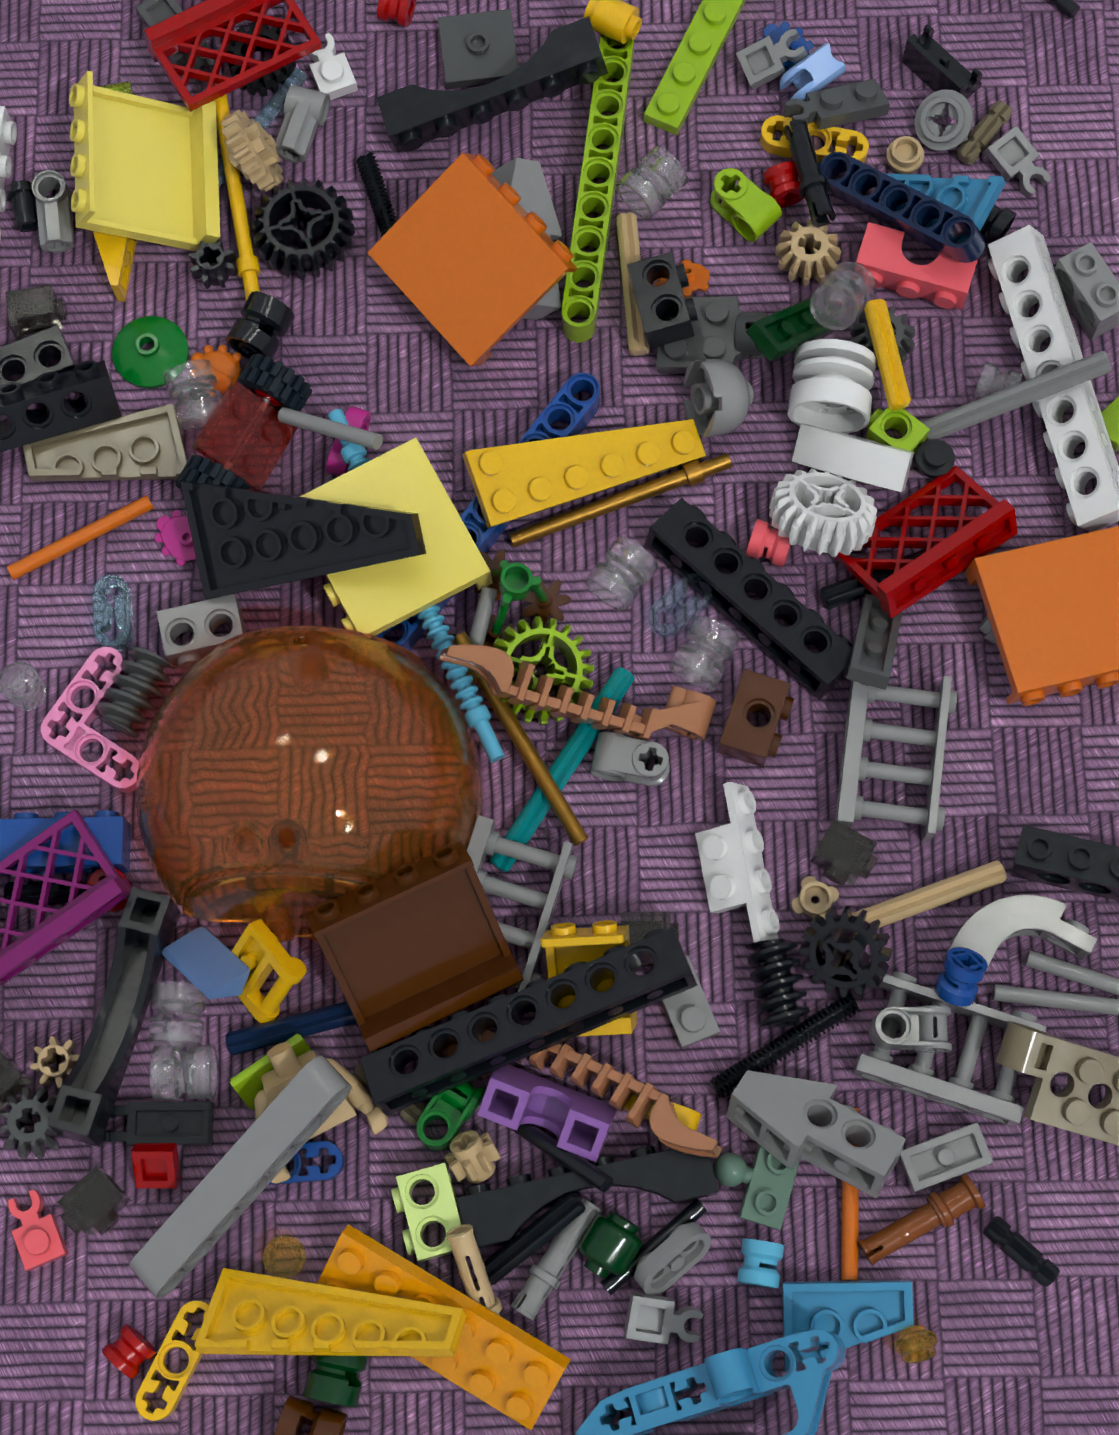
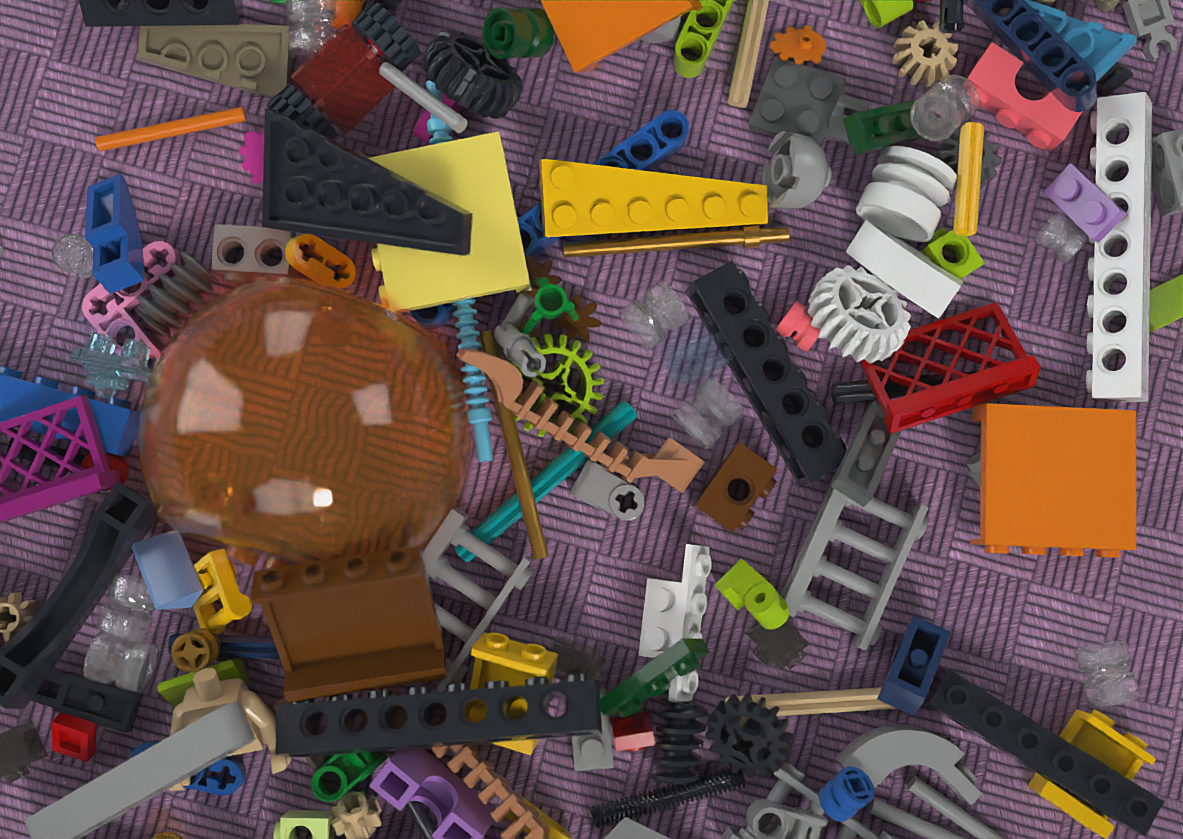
camera: 10 degrees right, 10 degrees up
(55, 653) = (114, 234): none -> blue slope
(95, 780) = (111, 368): none -> clear light blue hips
(122, 612) = (189, 211): clear light blue beam -> none
(251, 1036) = (189, 656): none -> pearl gold wheel
(271, 612) = (324, 255): none -> beam
(371, 395) = (471, 74): none -> black gear
(403, 344) = (518, 32): none -> dark green wheel
(499, 635) = (519, 349): none -> light grey pin
(659, 300) = (768, 61): black brick -> none
(728, 989) = (632, 732): none -> red plate
(732, 920) = (654, 677): none -> dark green plate
(805, 809) = (747, 587): none -> lime leg
(812, 888) = (737, 683): tan plate -> none
(934, 458) = (979, 289): black plate -> none
(987, 833) = (914, 665): none -> dark blue brick
(1008, 345) = (1085, 203): none -> medium lavender plate
(1018, 395) = (1080, 256): light grey axle -> none

